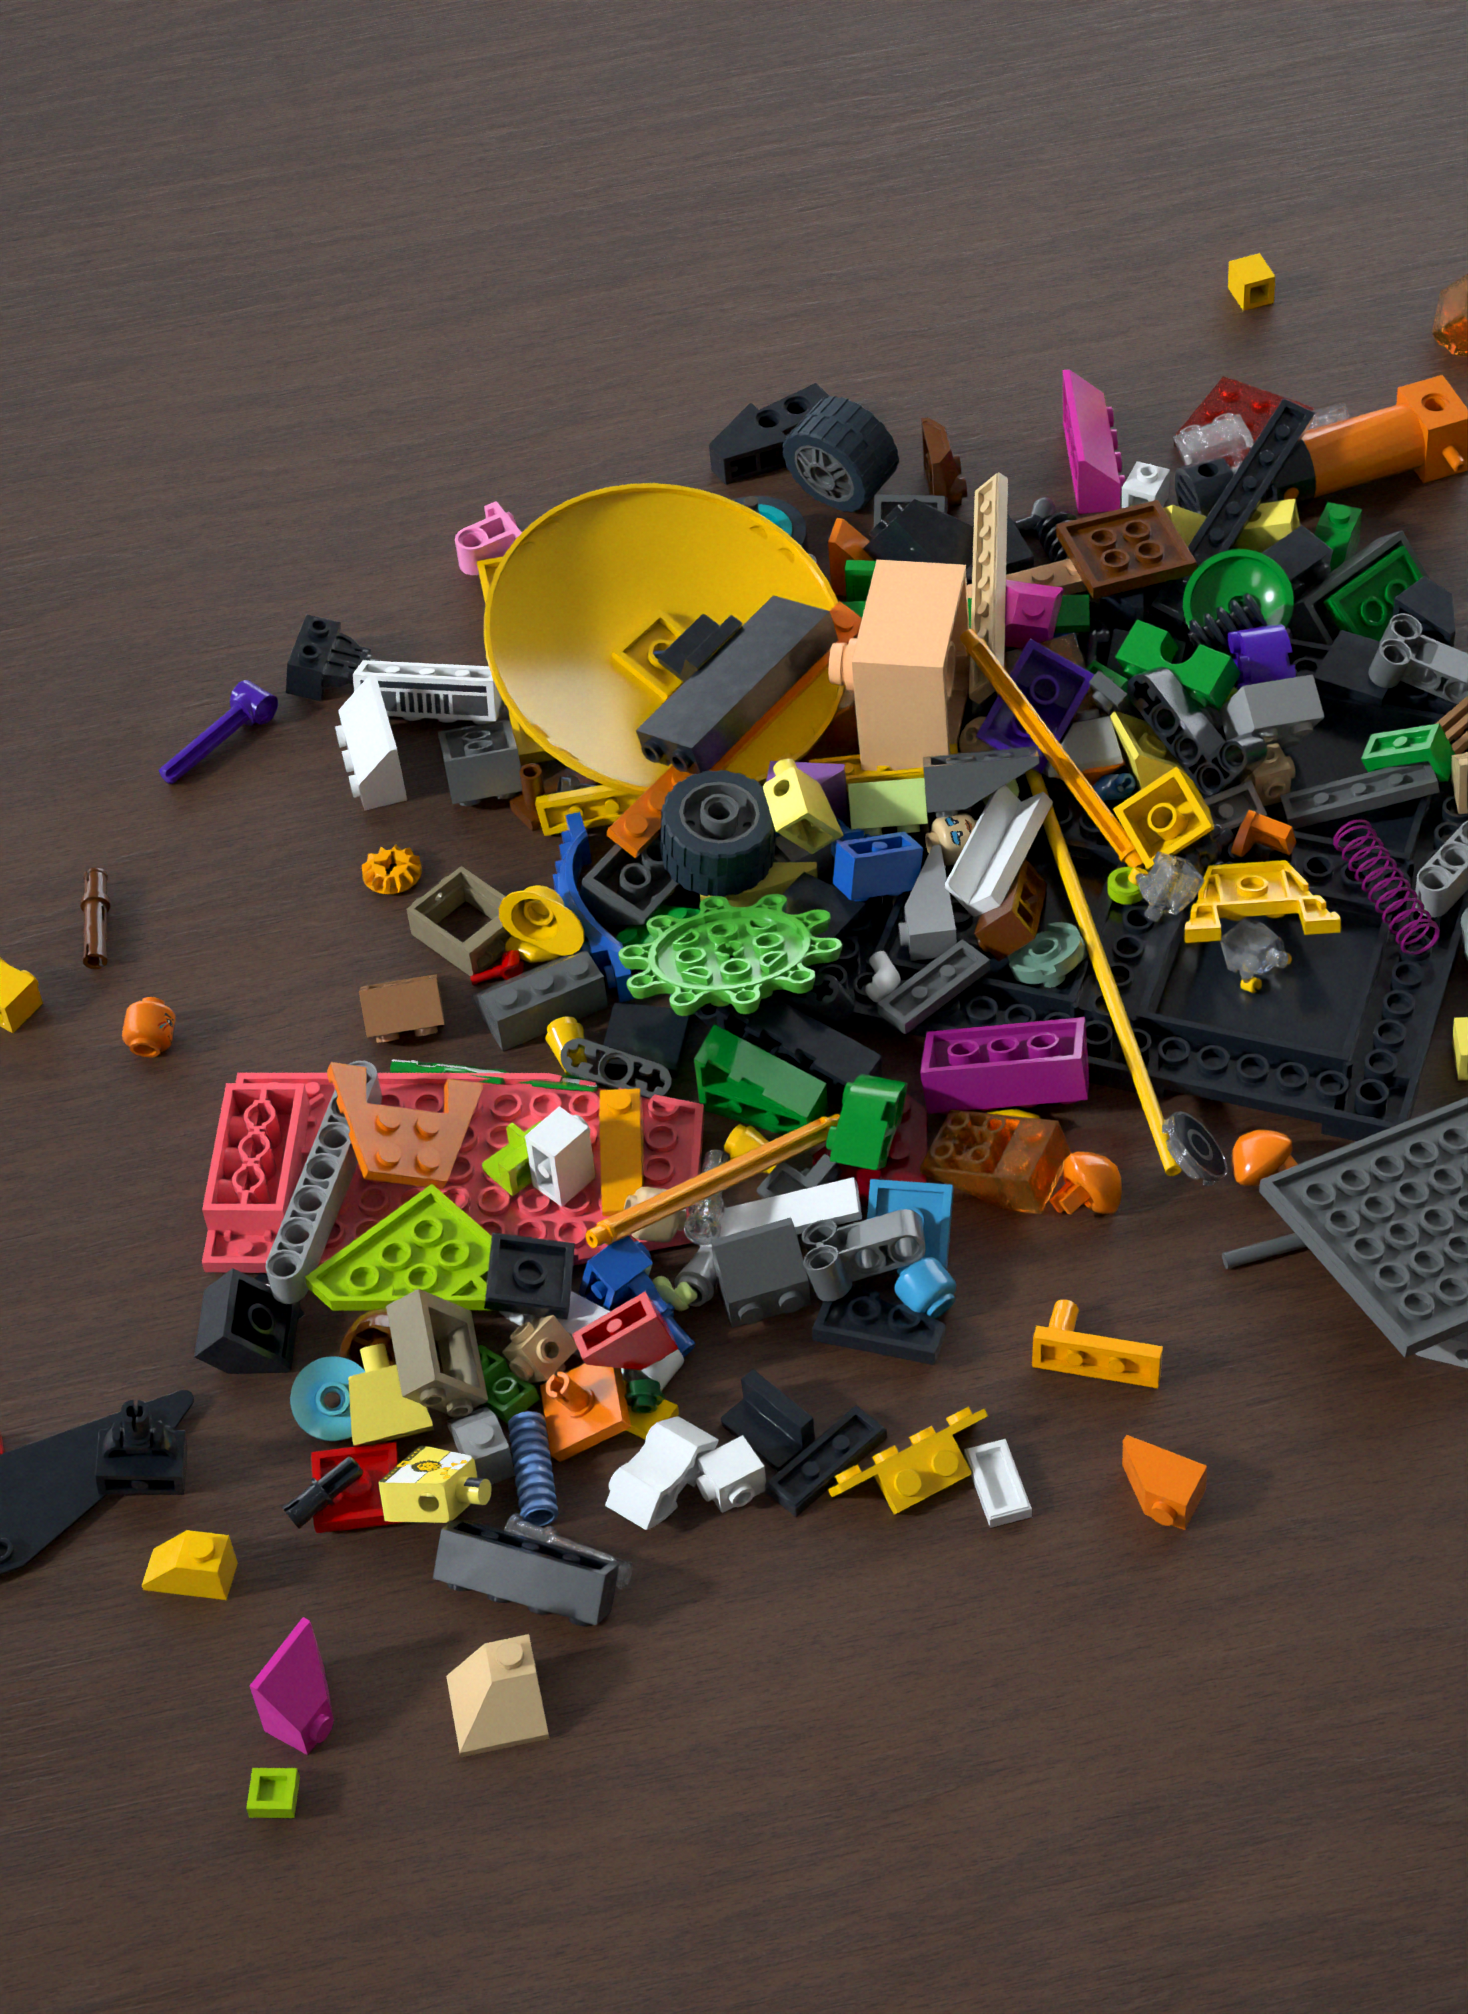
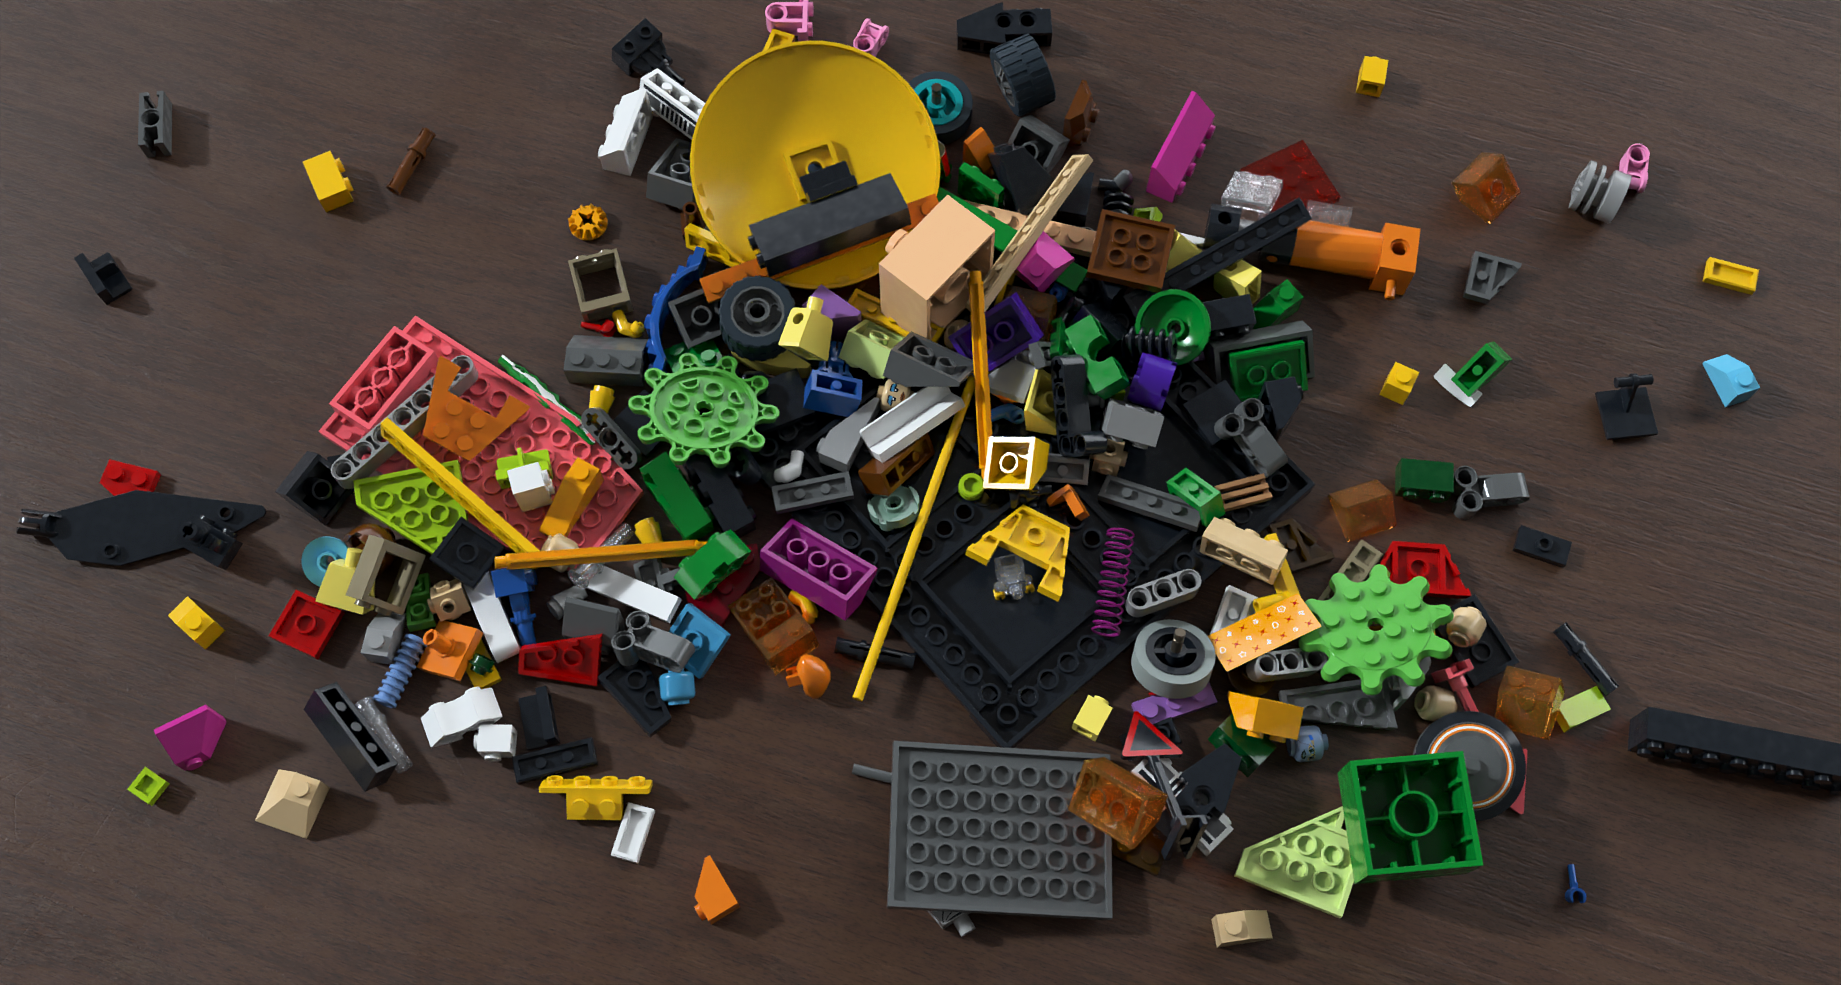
camera: 25 degrees right, 20 degrees up
(148, 1027) = (390, 255): orange head -> none
(248, 705) = (584, 59): dark purple axle -> none
(322, 1492) = (279, 622): black axle -> none
(402, 1007) = (529, 321): medium nougat slope -> none
(432, 1487) = (333, 656): light yellow torso -> none
(453, 1203) = (455, 488): none -> yellow tile
(542, 919) = (633, 312): yellow piece -> none
(627, 1336) = (485, 629): red slope -> none
(678, 1297) = (538, 605): yellowish green arm -> none
(751, 1335) = (564, 660): none -> red wing
(1093, 1355) = (720, 769): light orange piece -> none
(1133, 1128) = (886, 655): none -> black pin
(1146, 485) = (1192, 201): white brick -> none
(1168, 885) = (986, 507): clear piece -> none
(1194, 1148) = (882, 690): tile -> none
(1260, 1156) = (916, 718): orange piece -> none

